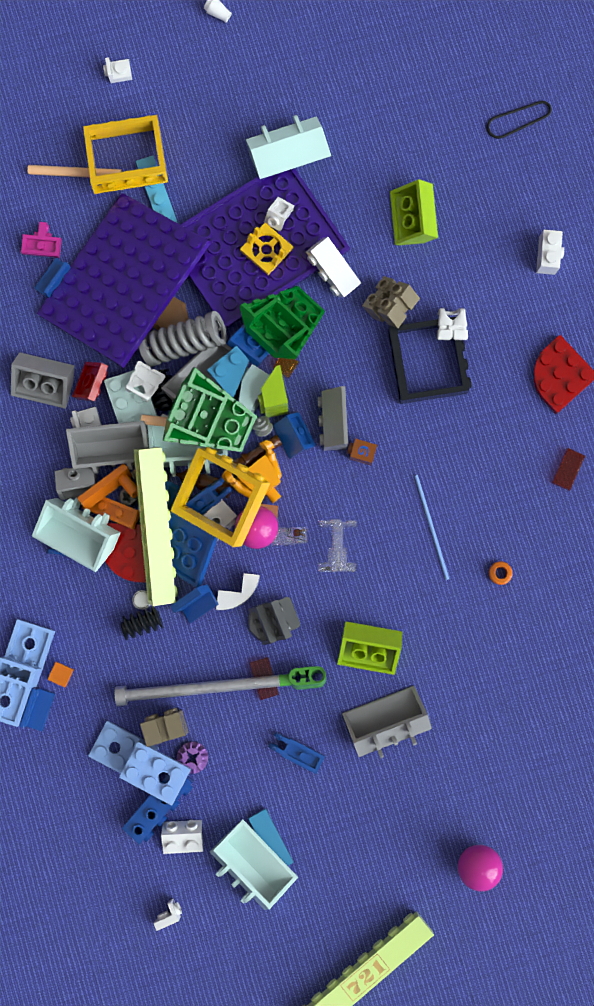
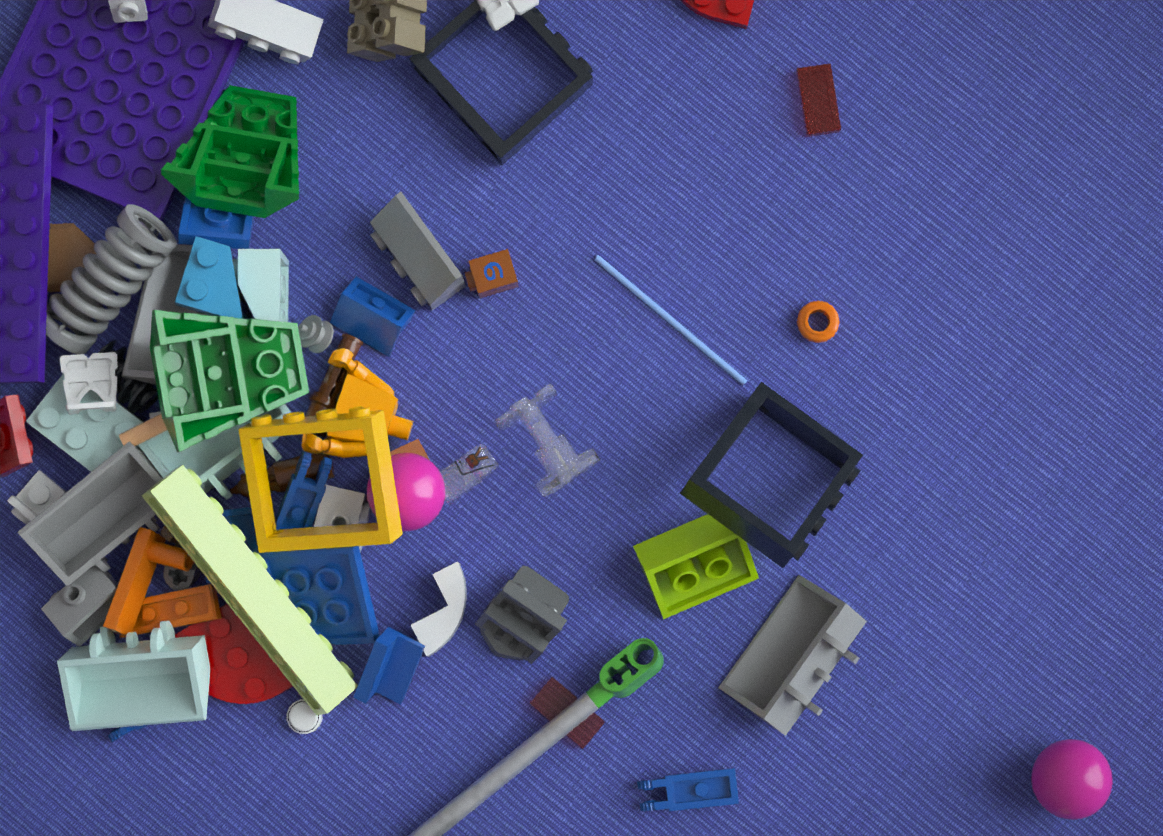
camera: 30 degrees left, 0 degrees up
(141, 622) = (325, 751): black piece -> none
(265, 229) = (126, 31): yellow piece -> none
(273, 395) = (303, 278): lime slope -> none
(287, 366) = (291, 220): clear orange tile -> none
(403, 642) = (741, 520): none -> black window

